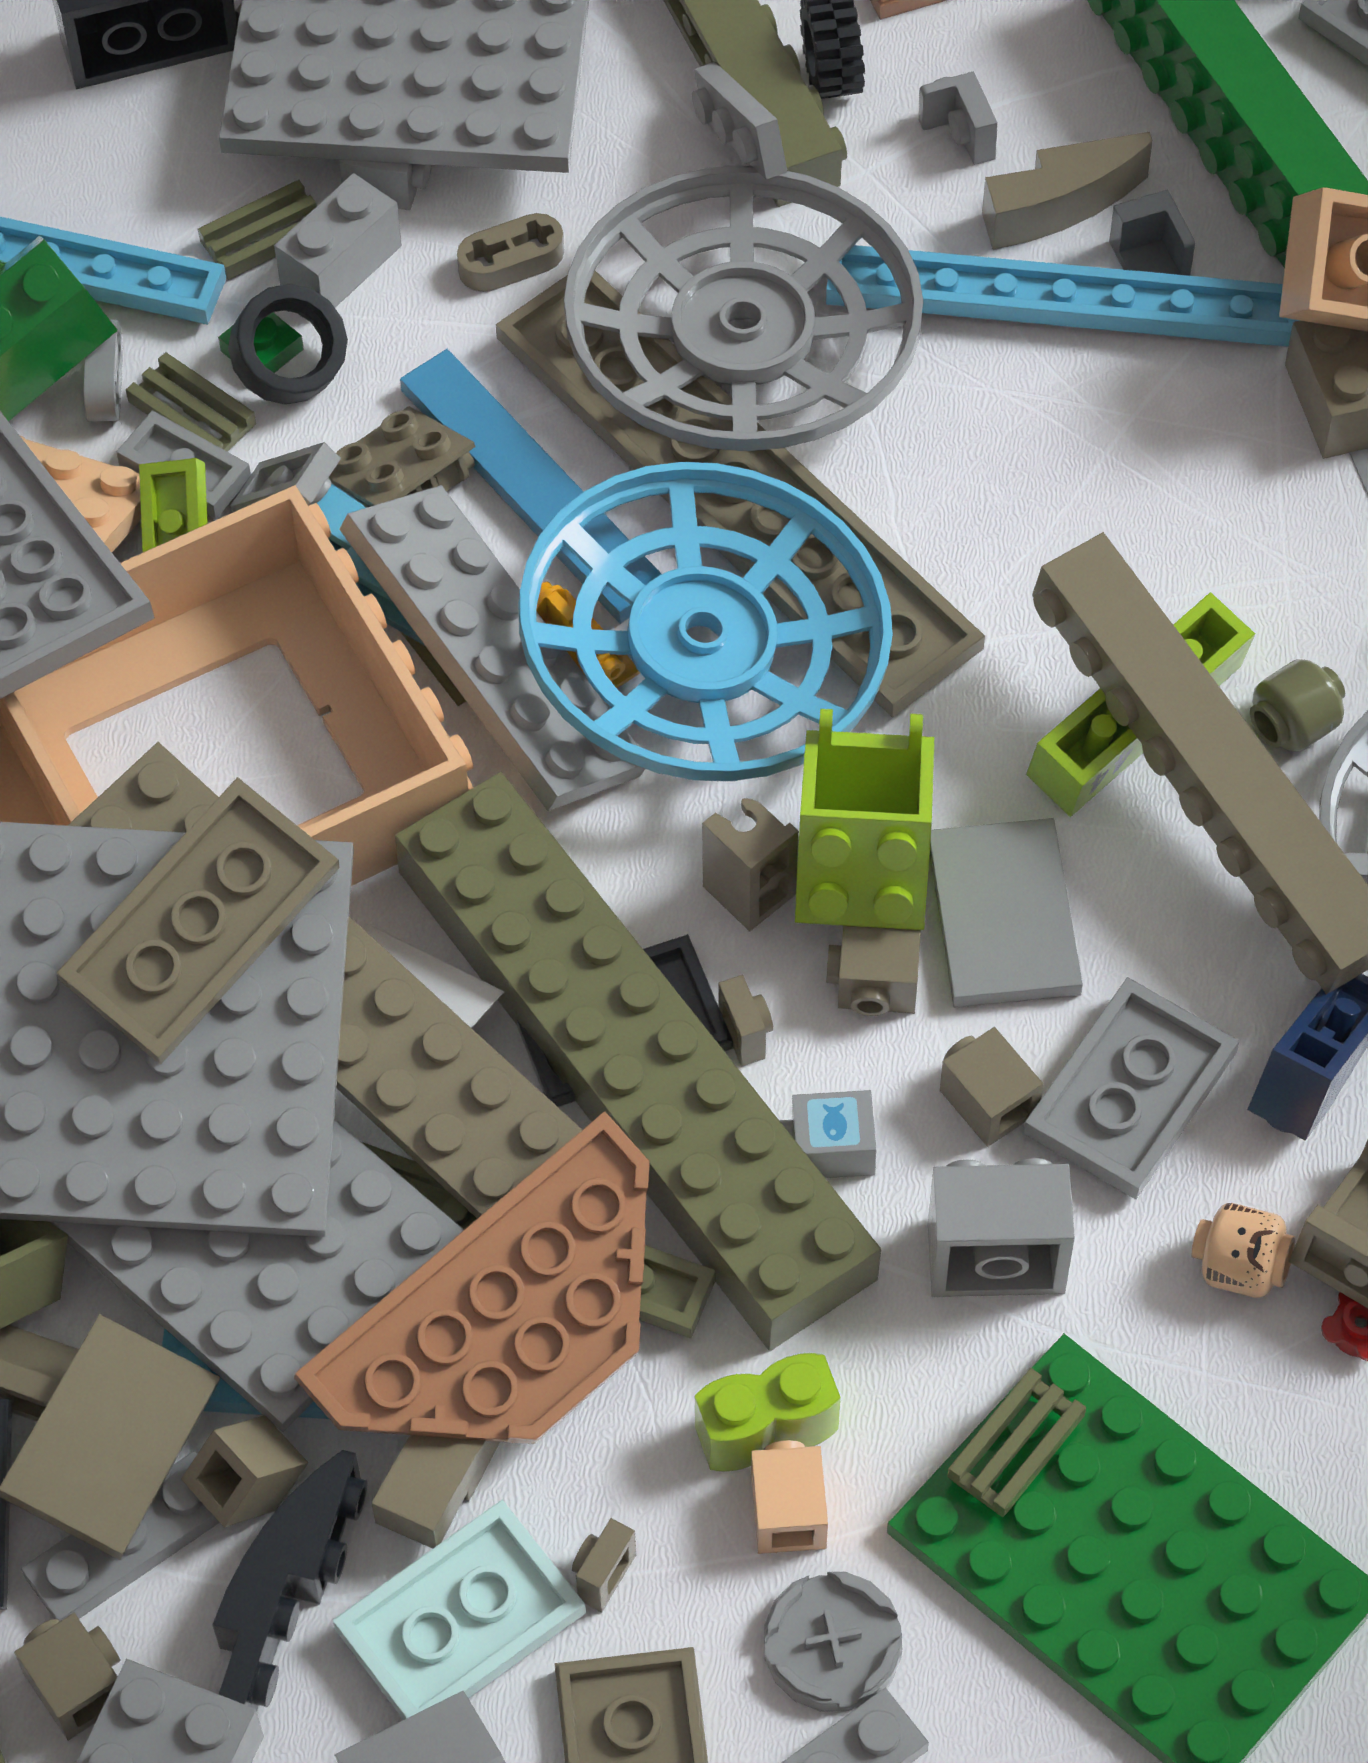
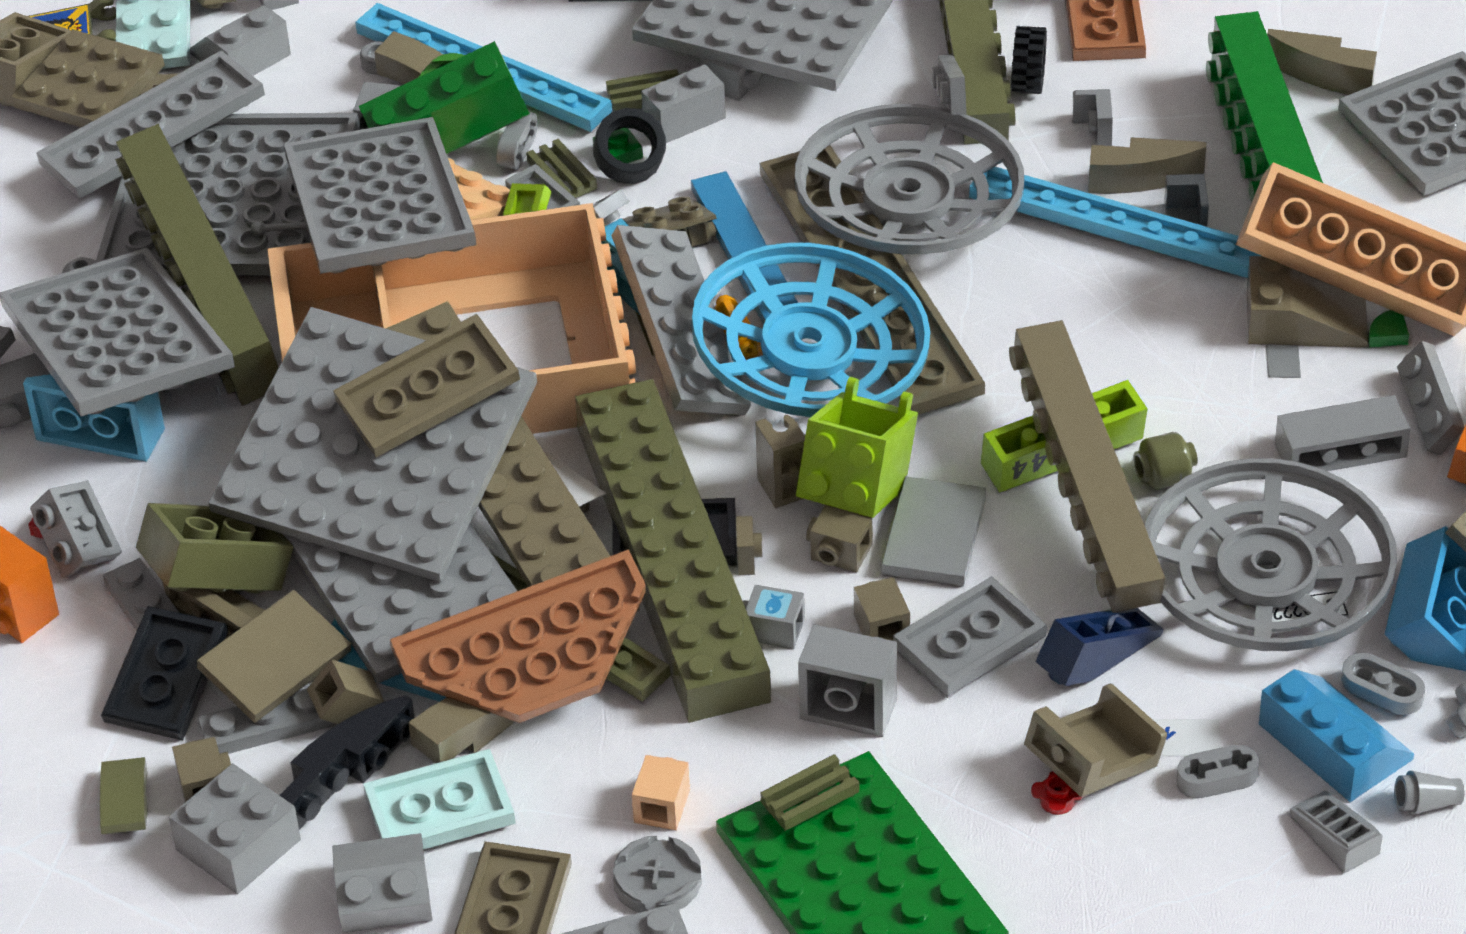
camera: 20 degrees right, 15 degrees down
(510, 252) = (786, 131): dark tan beam -> none
(603, 1563) = (536, 797): dark tan plate -> none
(749, 1411) = (678, 735): lime brick -> none
(1244, 1250) = (998, 732): light nougat head -> none

